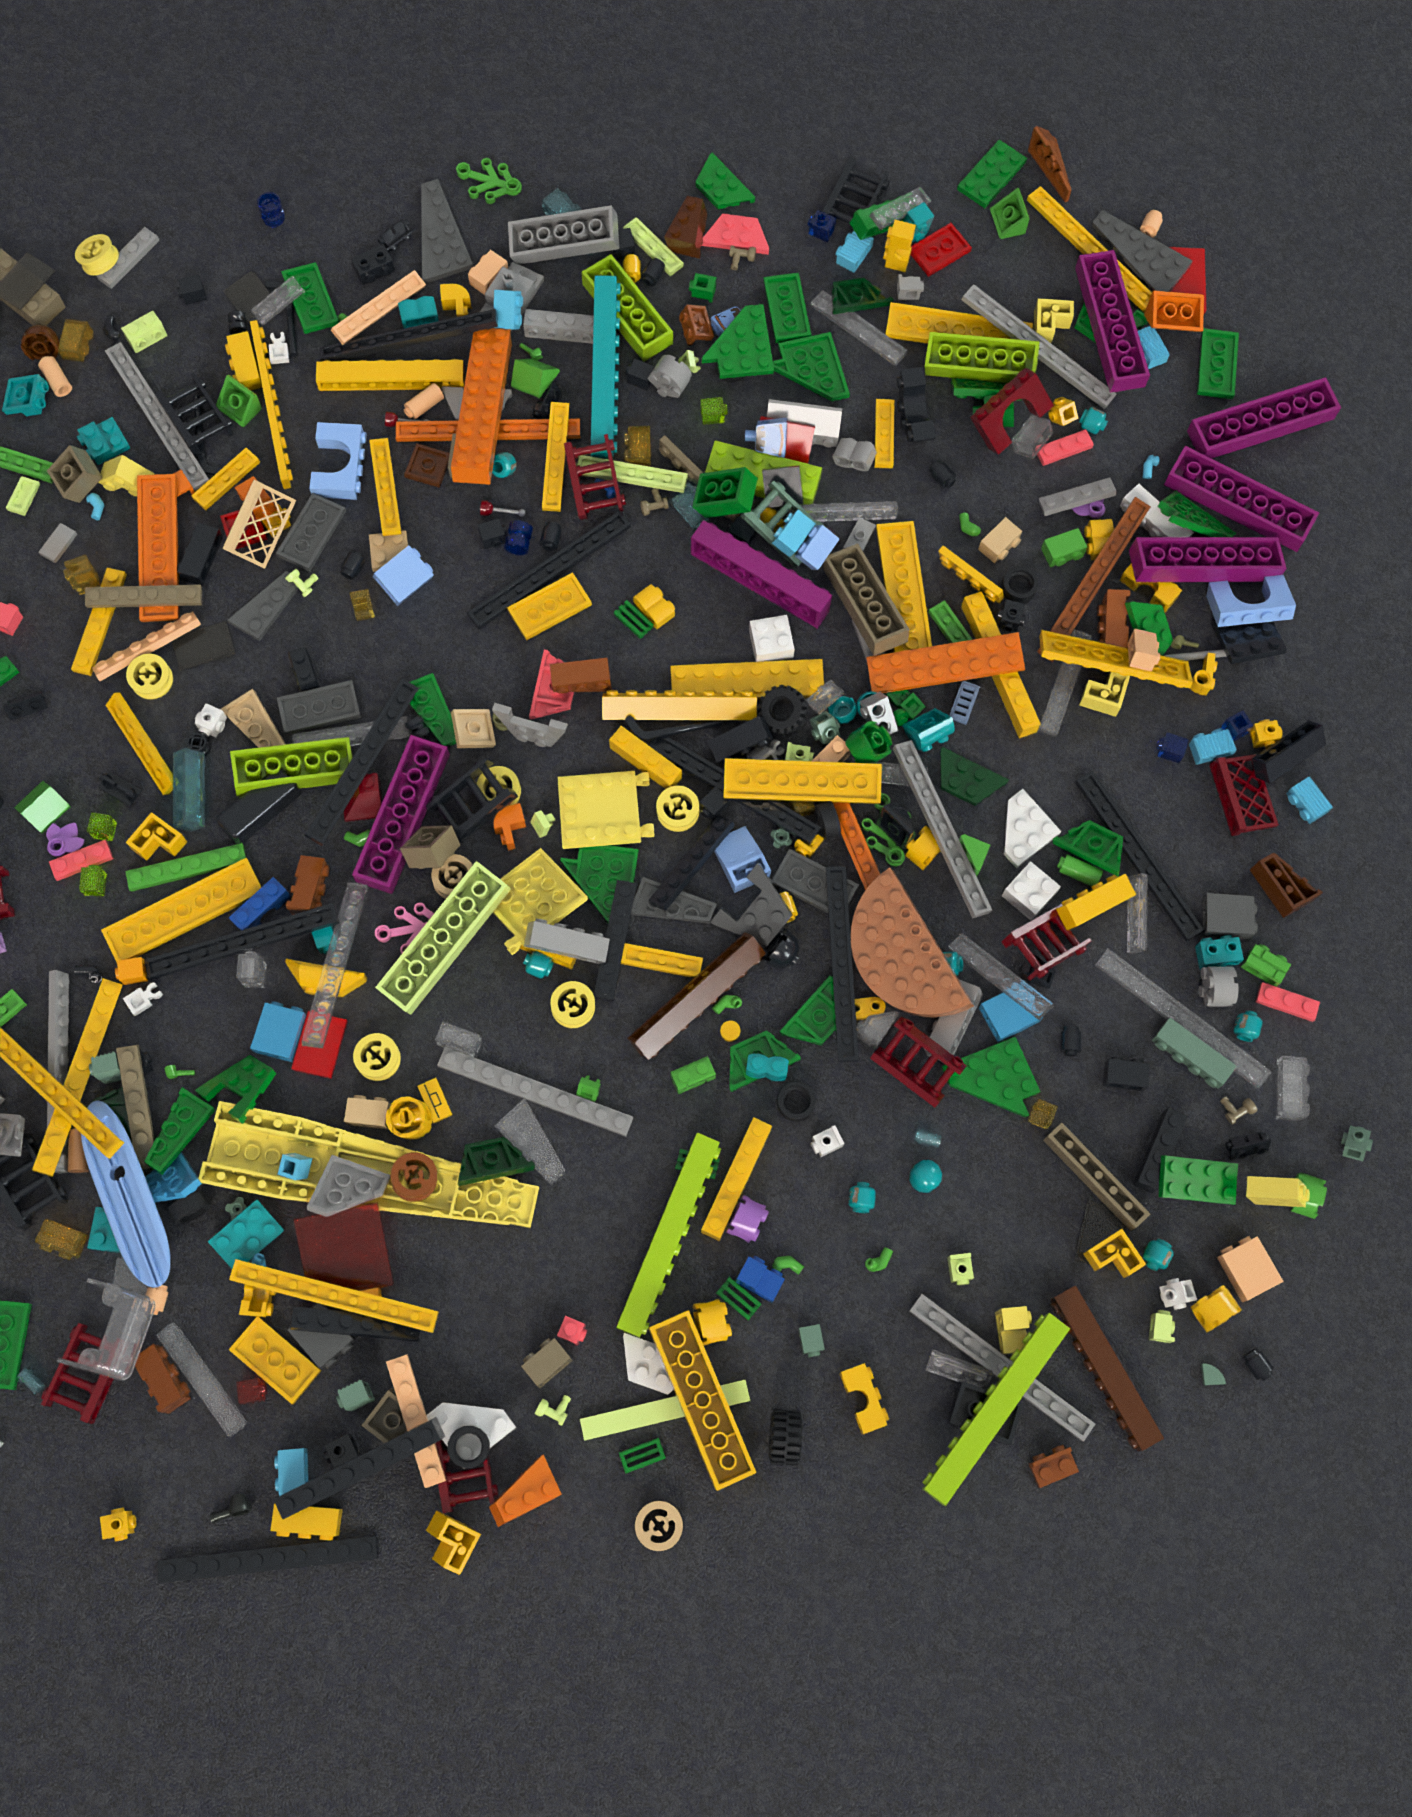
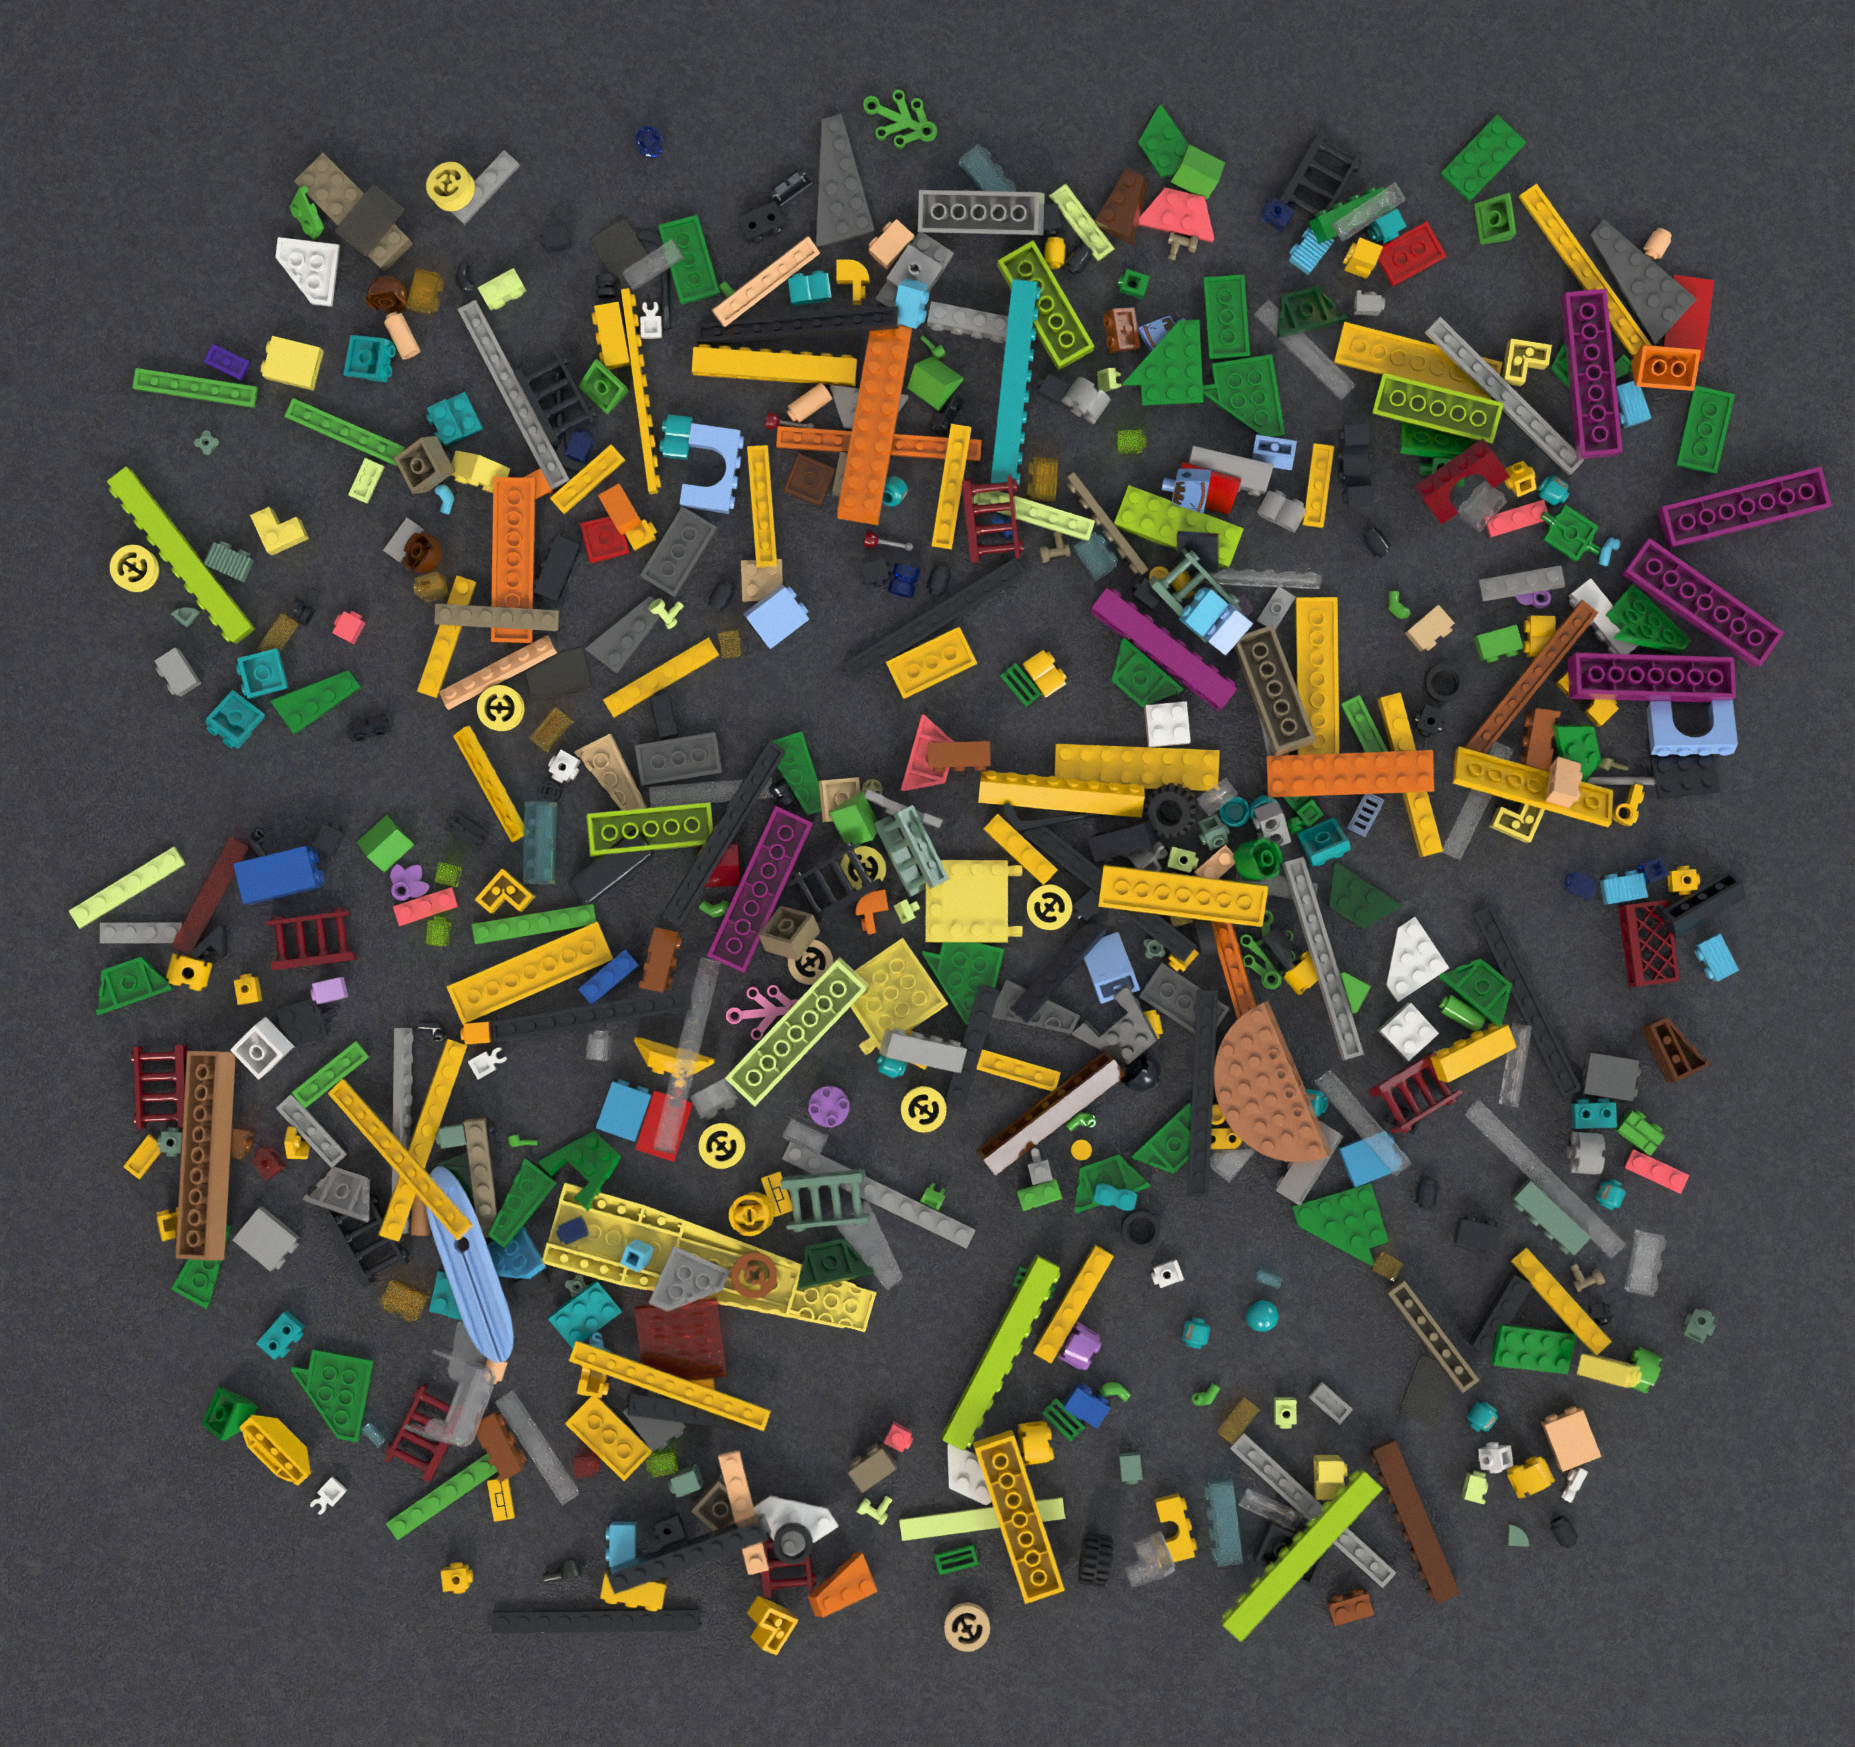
camera: 10 degrees right, 15 degrees up
(74, 545) = (422, 553): none -> reddish brown cylinder
(101, 1441) = (441, 1497): none -> bright green plate
(164, 1437) = (501, 1499): none -> yellow tile
(197, 689) = (551, 729): none -> clear yellow brick
(217, 452) = (580, 446): none -> clear blue brick
(229, 1148) = (572, 1230): none -> clear blue brick
(243, 517) = (607, 536): tan fence -> none
(302, 637) = (661, 677): none -> yellow plate
(304, 437) = (676, 437): none -> teal brick
(323, 938) = (675, 1020): teal brick -> none
(330, 1381) = (662, 1463): none -> clear neon green brick
(366, 1112) = (709, 1202): tan brick -> none
(367, 1012) = (713, 1098): none -> clear brick
(468, 1082) = (833, 1180): none -> sand green fence
(480, 1009) = (829, 1106): none -> medium lavender brick
(487, 742) = (854, 820): none -> bright green slope
(552, 758) = (920, 846): none -> sand green fence
(690, 1049) = (1038, 1169): none -> light grey brick
(725, 492) = (1133, 560): green brick -> none
(743, 602) = (1141, 677): none -> green wing
(748, 198) = (1198, 172): none -> bright green slope
(842, 400) = (1274, 451): none -> light blue brick
(845, 1430) = (1154, 1560): none -> clear brick
(859, 986) = (1217, 1116): none -> yellow tile
(913, 1080) = (1255, 1215): dark red fence -> none
(913, 1388) = (1224, 1522): none -> clear light blue brick
(914, 1282) = (1238, 1420): none -> clear yellow slope
(965, 571) = (1385, 665): yellow plate -> none
(1004, 1255) = (1330, 1402): none -> light grey plate
(1047, 155) = (1550, 139): dark orange wedge -> none
(1114, 453) = (1570, 533): none -> green plate
(1119, 1251) = (1439, 1409): yellow brick -> none
(1218, 1132) = (1561, 1301): none -> yellow plate
(1261, 1308) = (1575, 1480): none -> white plate

